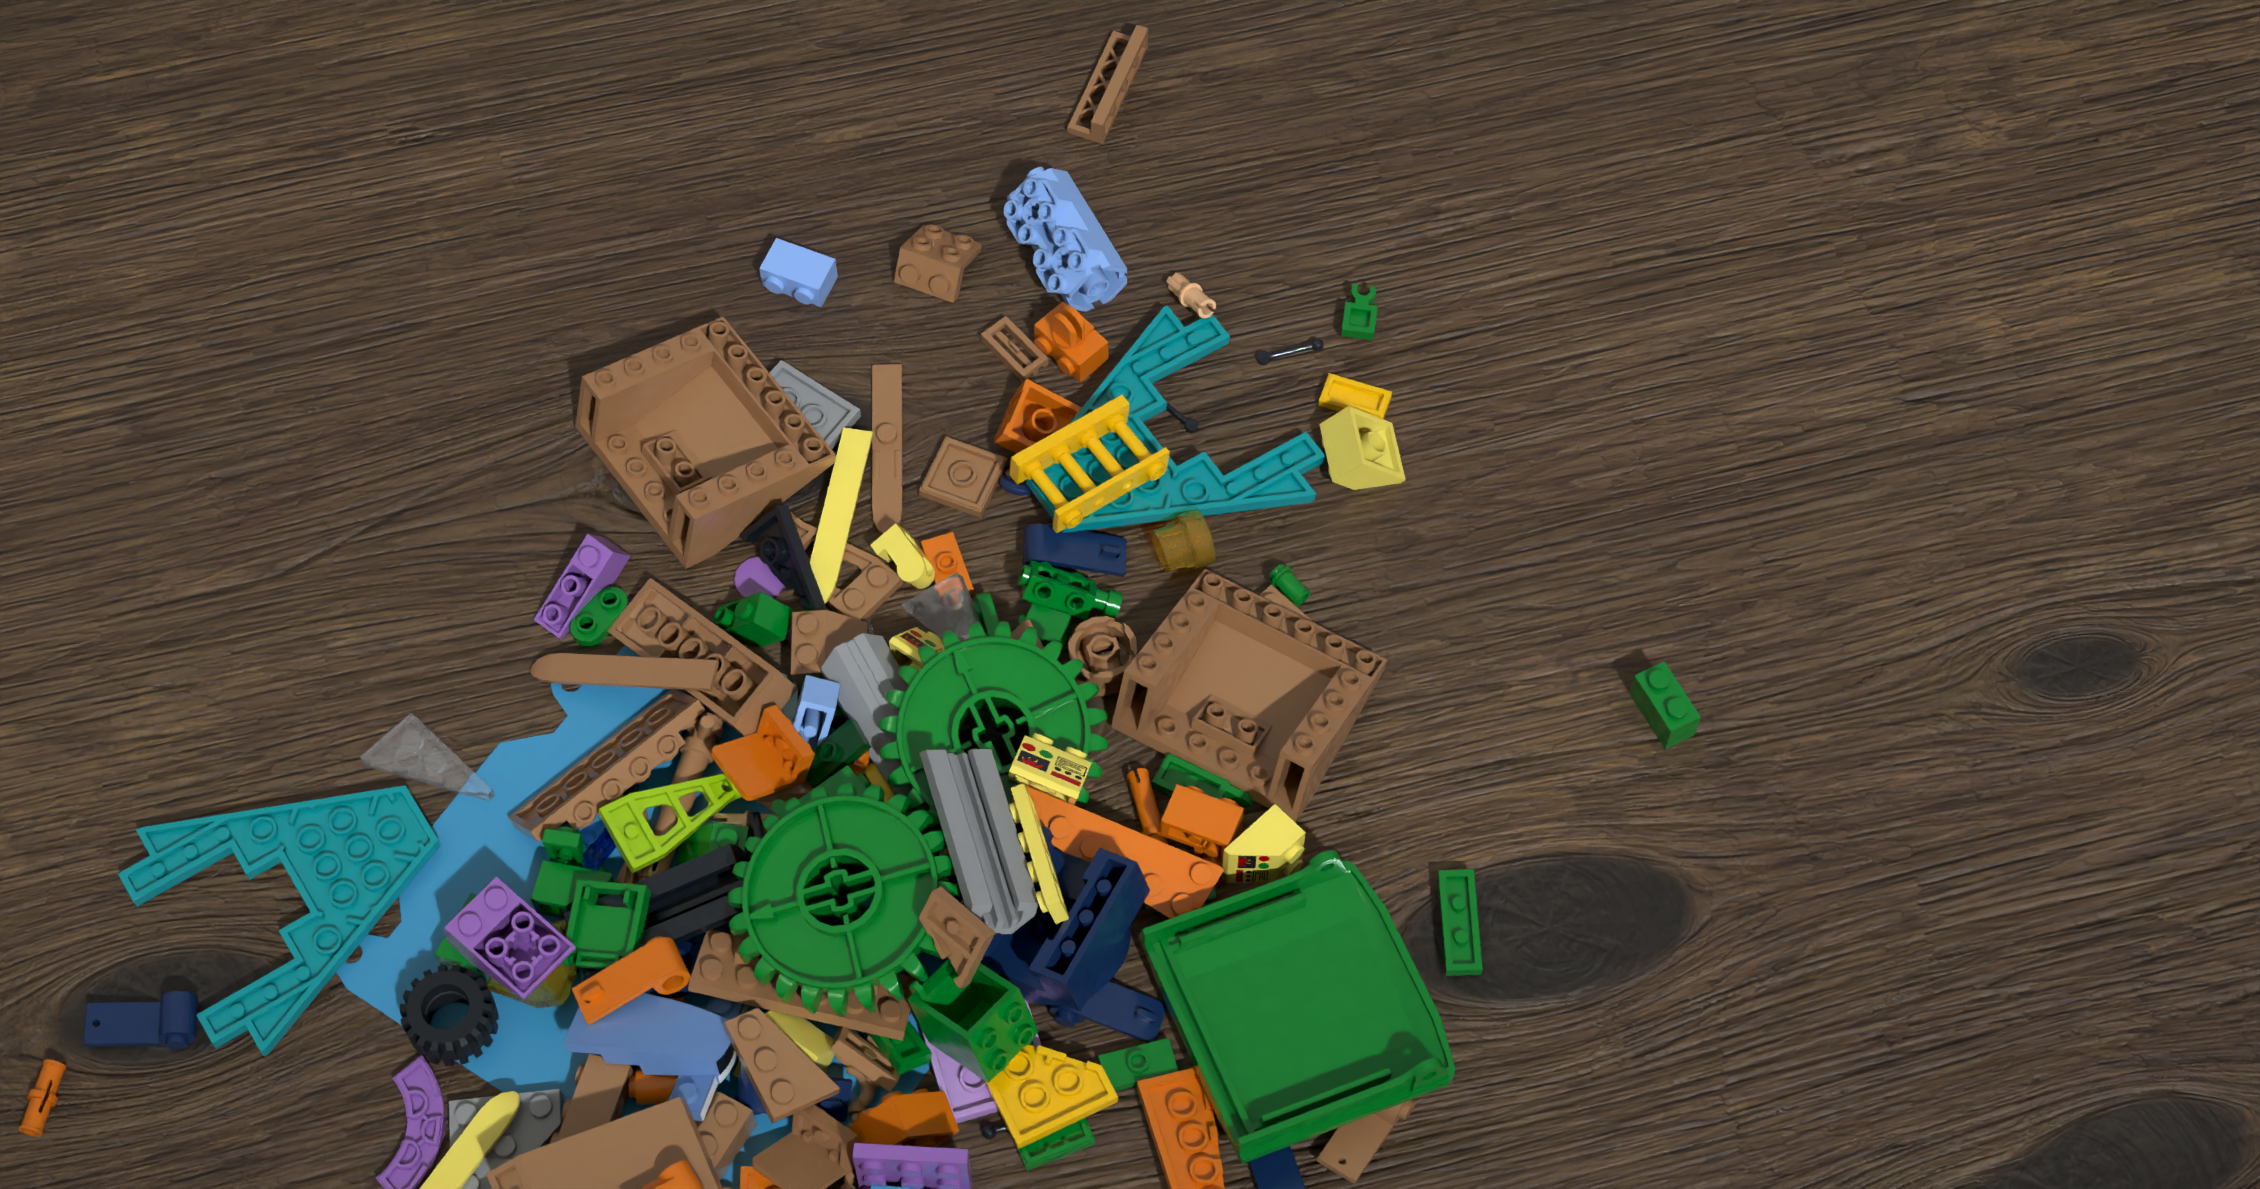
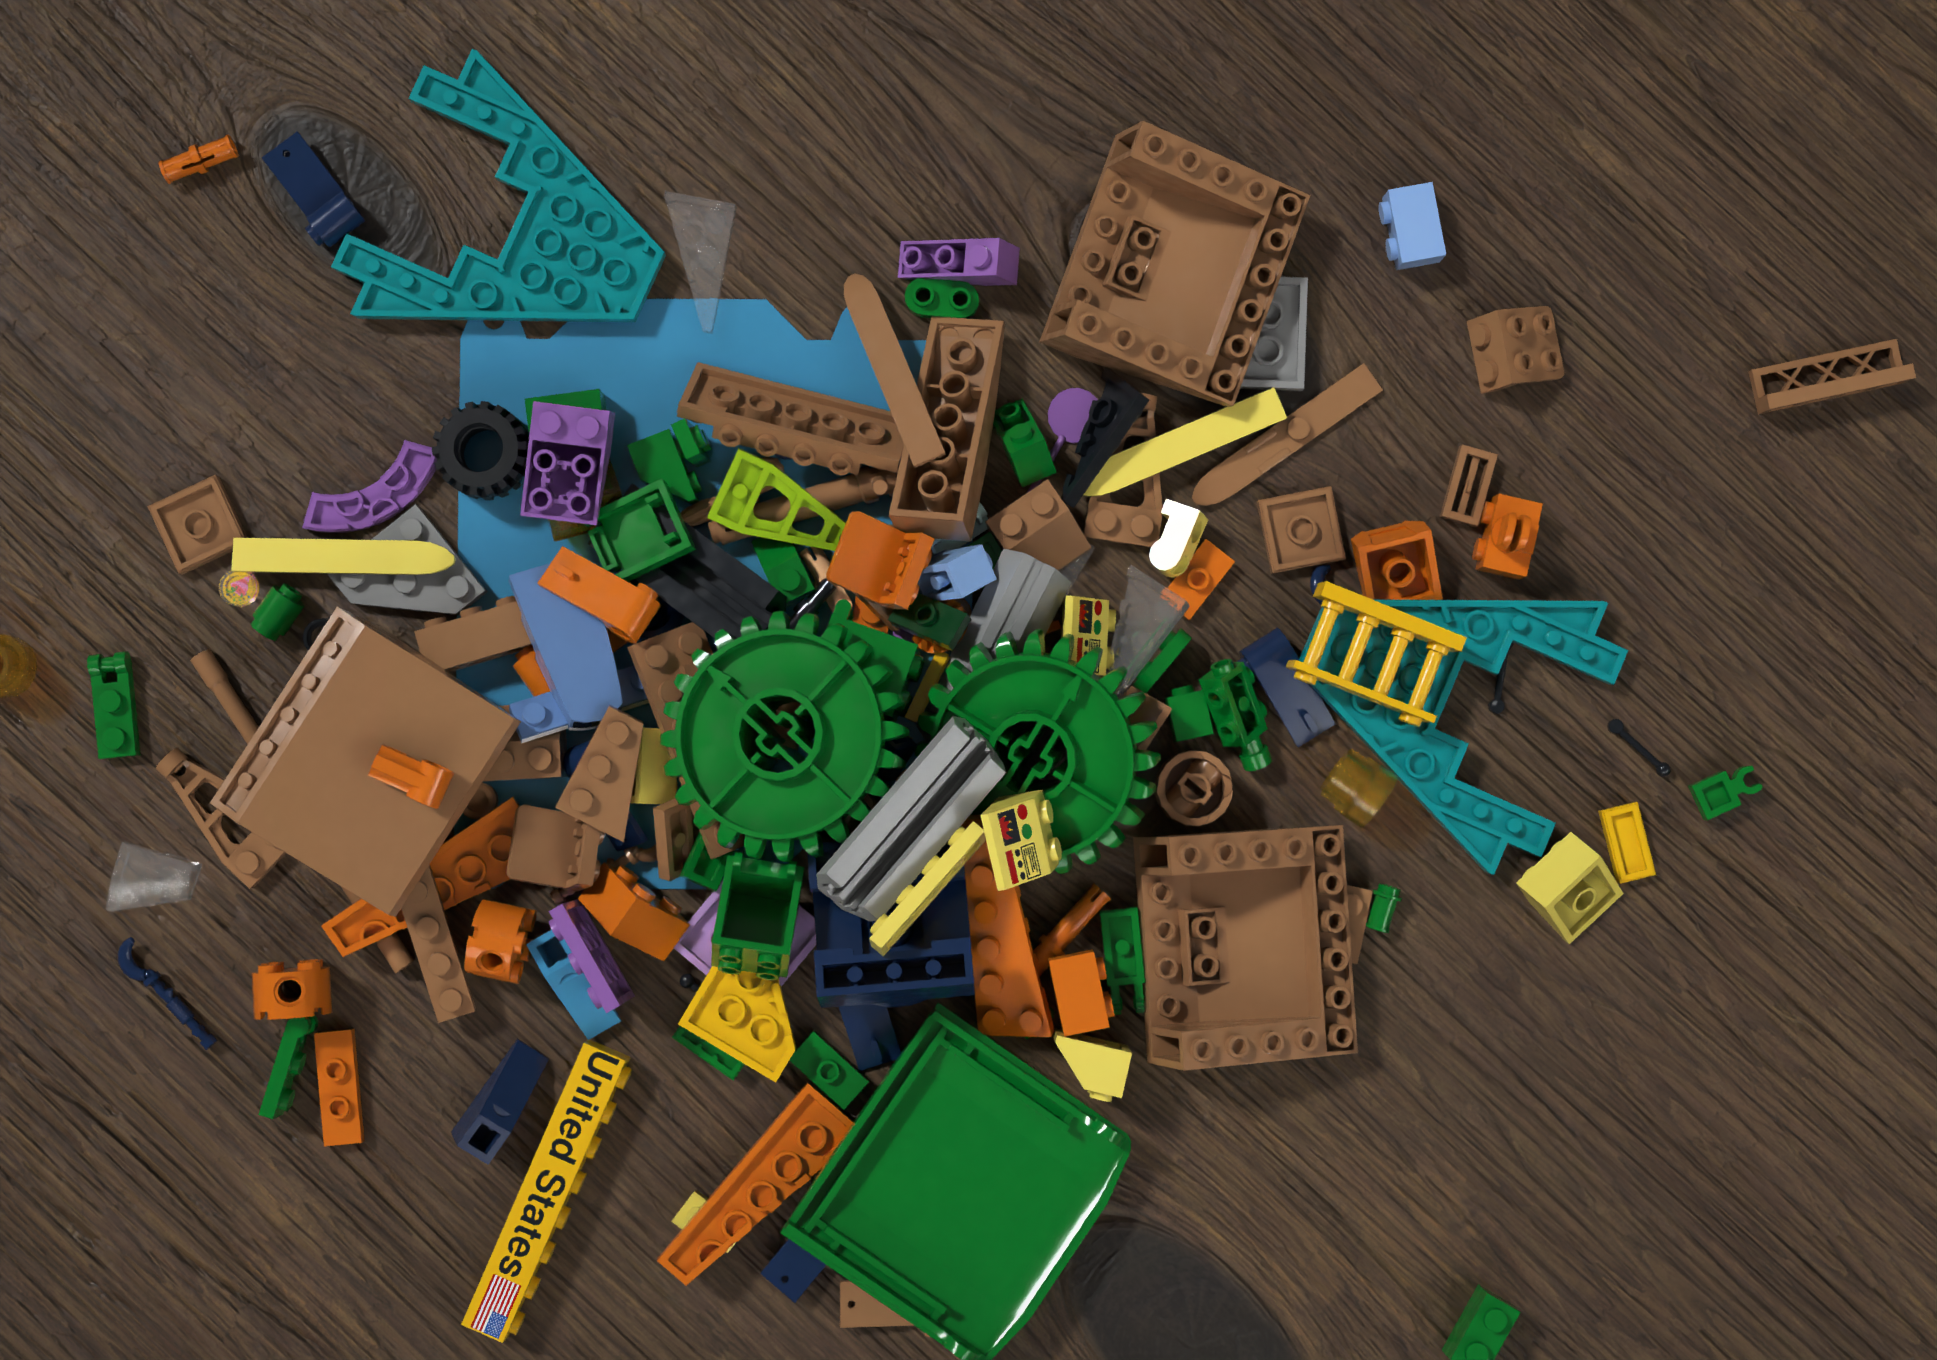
camera: 55 degrees right, 25 degrees up
(598, 850) = (708, 471): clear blue axle -> none
(956, 933) = (797, 872): medium nougat wing -> none
(1068, 241) = (1624, 444): light blue brick -> none
(1191, 295) = (1635, 617): light nougat axle -> none
(1459, 922) = (1143, 1270): green plate -> none

